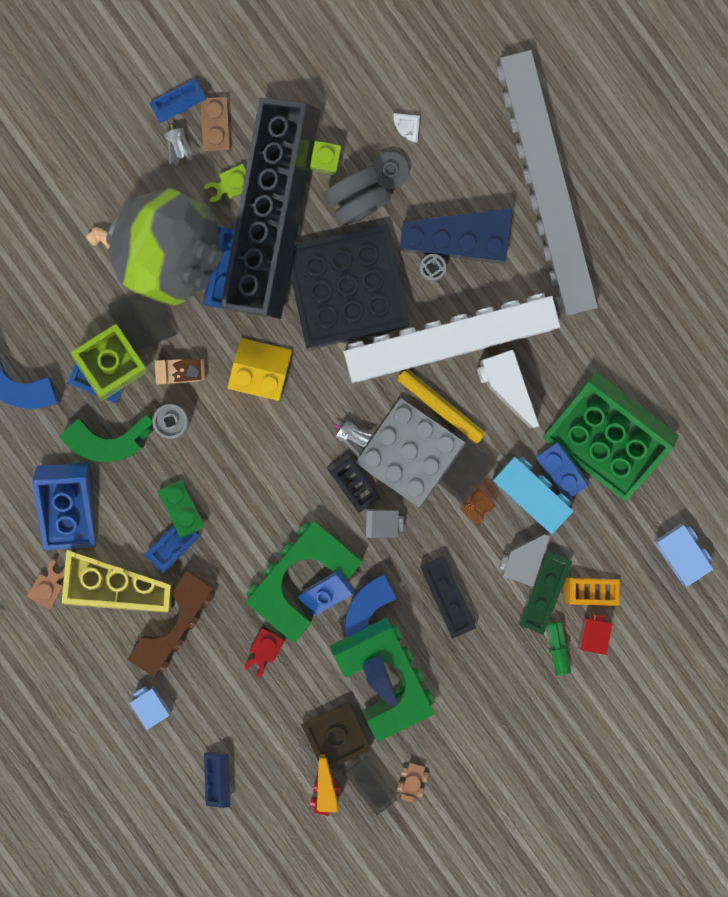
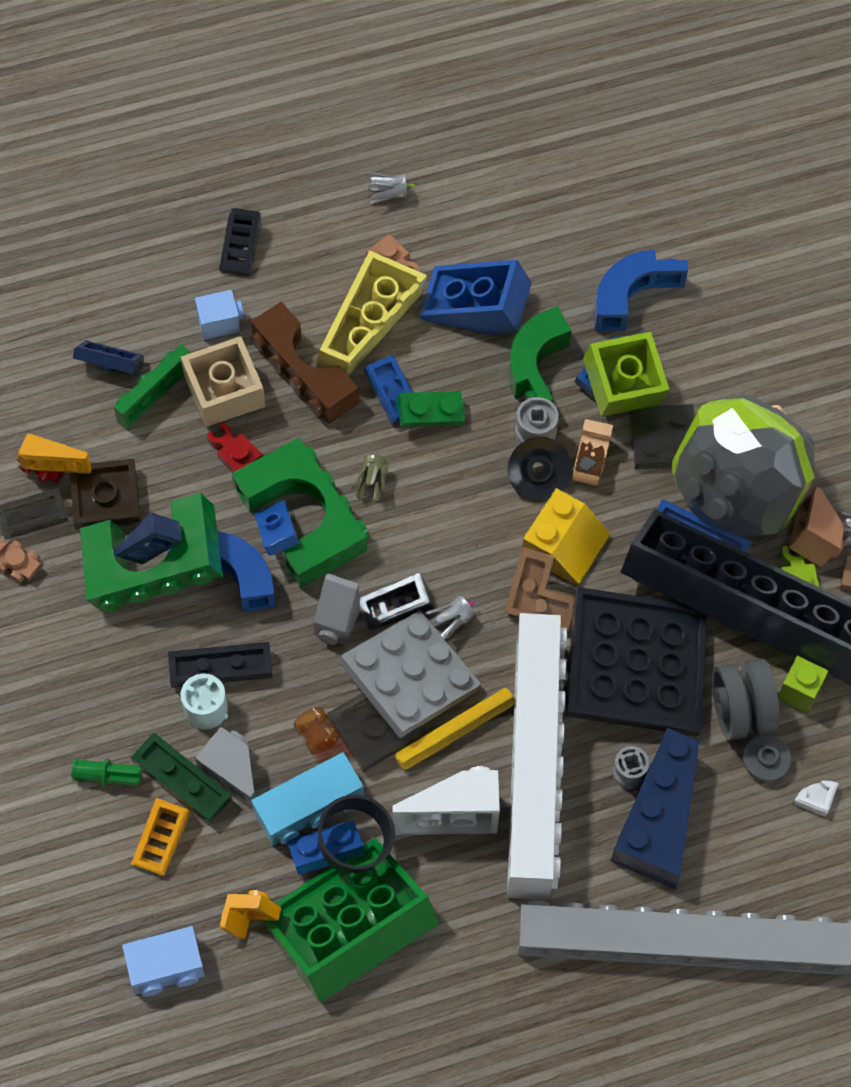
camera: 110 degrees right, 25 degrees down
(52, 720) = (245, 223): none -> black slope
(193, 177) = (817, 529): none -> nougat slope
(213, 680) = (223, 381): none -> tan brick
(214, 402) = (540, 485): none -> black dish
(231, 735) = (150, 388): none -> green plate
(254, 535) = (373, 471): none -> olive piece
(320, 378) = (529, 589): none -> medium nougat plate
(483, 597) = (204, 701): none -> light aqua piece
(557, 424) = (366, 805): none -> black tyre
(595, 634) = (106, 820): red brick -> none
(631, 514) = (245, 907): none -> light orange bracket

